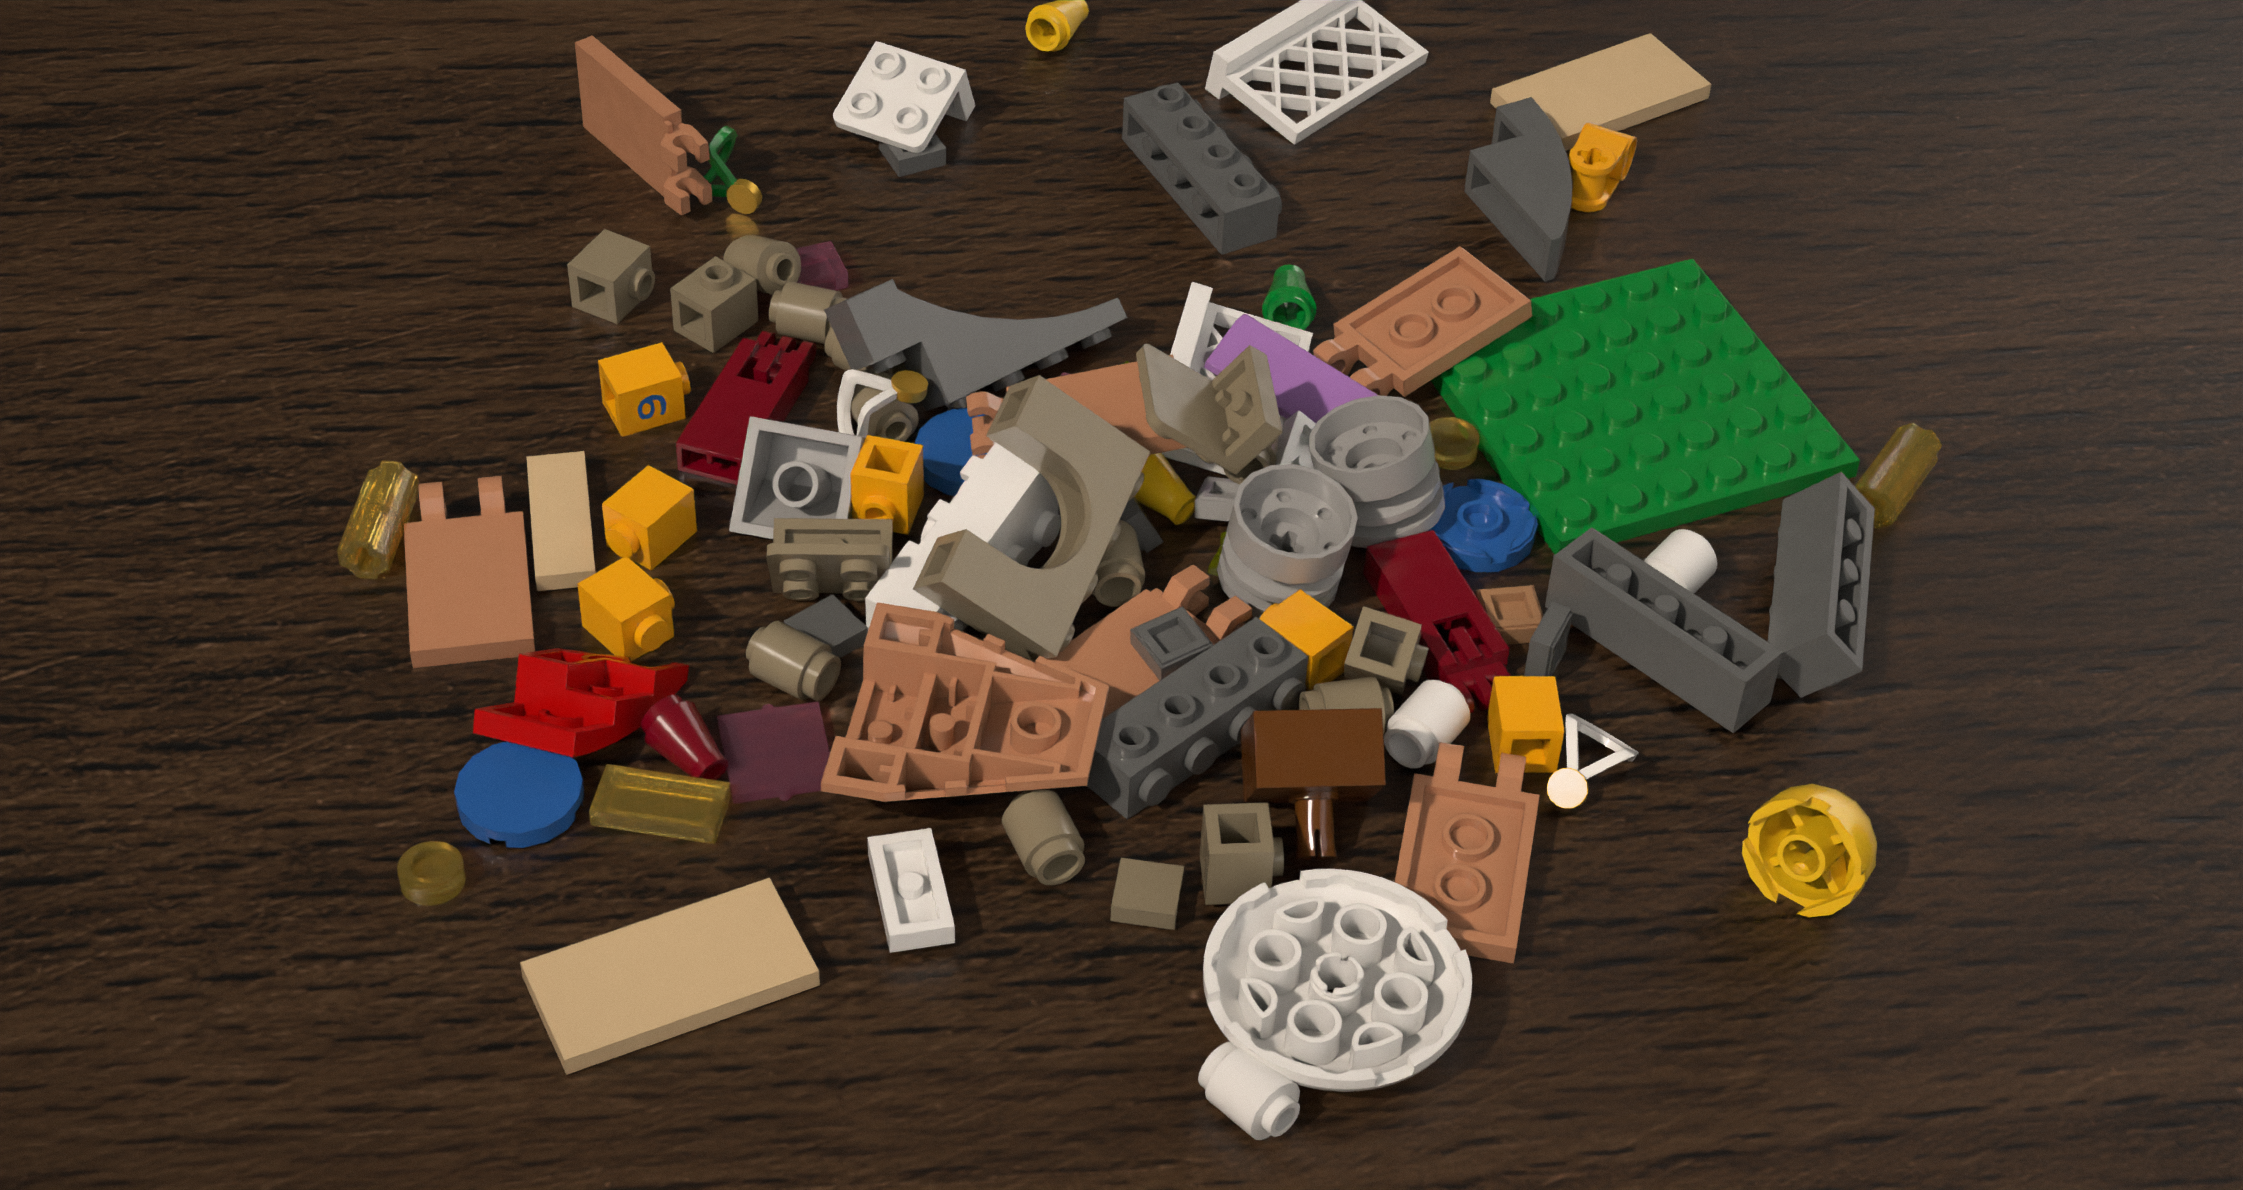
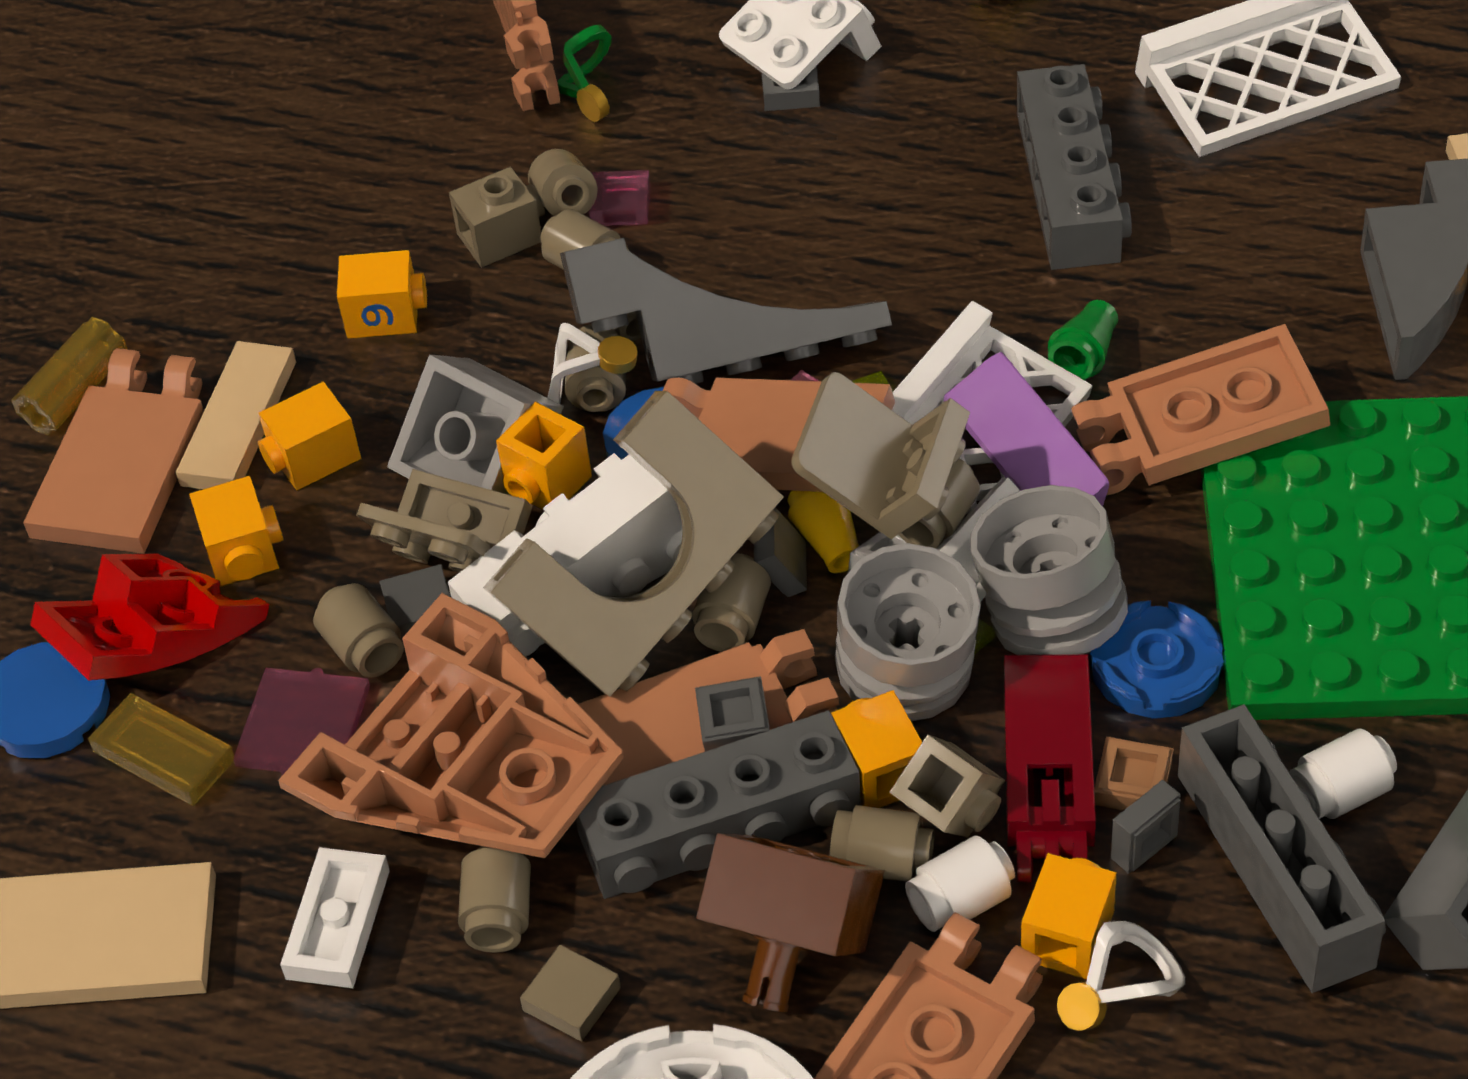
camera: 30 degrees right, 5 degrees up
(611, 276) = (416, 164): dark tan brick -> none
(682, 737) = (213, 684): dark red cone -> none
(741, 392) = (469, 324): dark red hinge -> none
(1237, 850) = (666, 979): dark tan brick -> none
(1454, 442) = (1177, 551): clear yellow tile -> none

